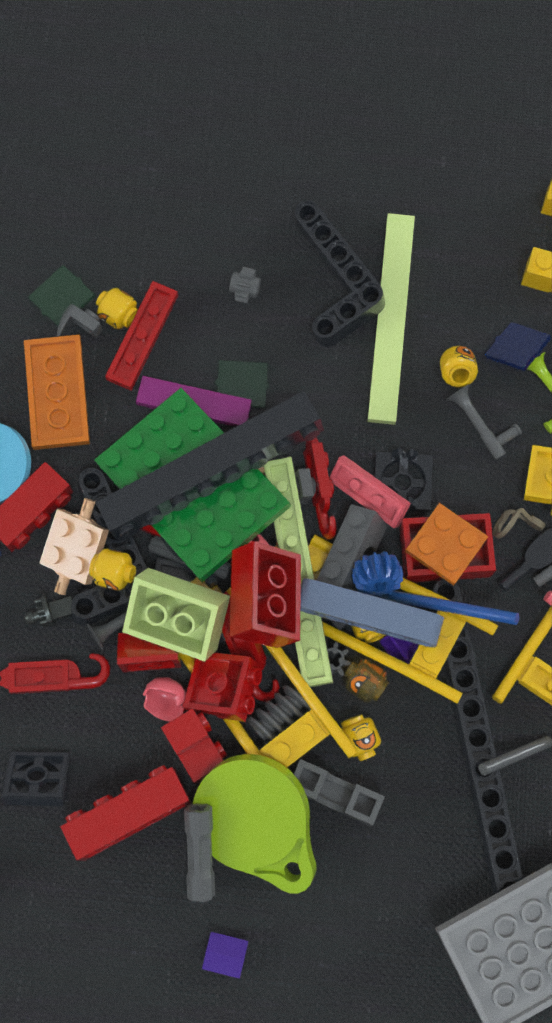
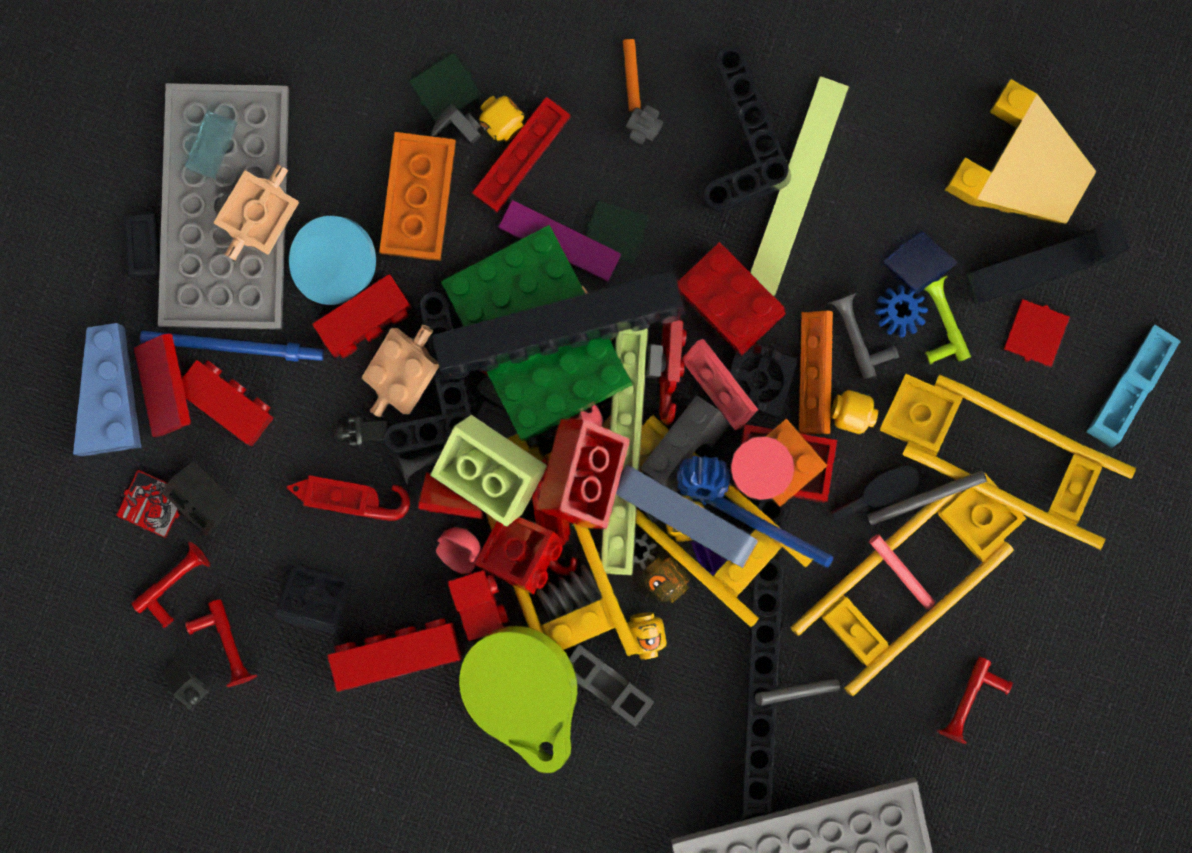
camera: 15 degrees right, 10 degrees up
(112, 569) = (434, 408): yellow head -> none
(200, 874) = (462, 689): dark grey axle -> none
(223, 248) = (631, 74): none -> orange piece
(225, 955) = (461, 814): dark purple piece -> none
(361, 414) = (730, 299): none -> red brick
(430, 550) = (762, 468): none -> coral tile
(452, 461) = (815, 372): none -> orange tile
(458, 366) = (849, 270): yellow head -> none
(496, 488) = (853, 412): none -> yellow head
(519, 513) = (854, 443): dark tan piece -> none
(523, 392) = (911, 309): none -> blue gear

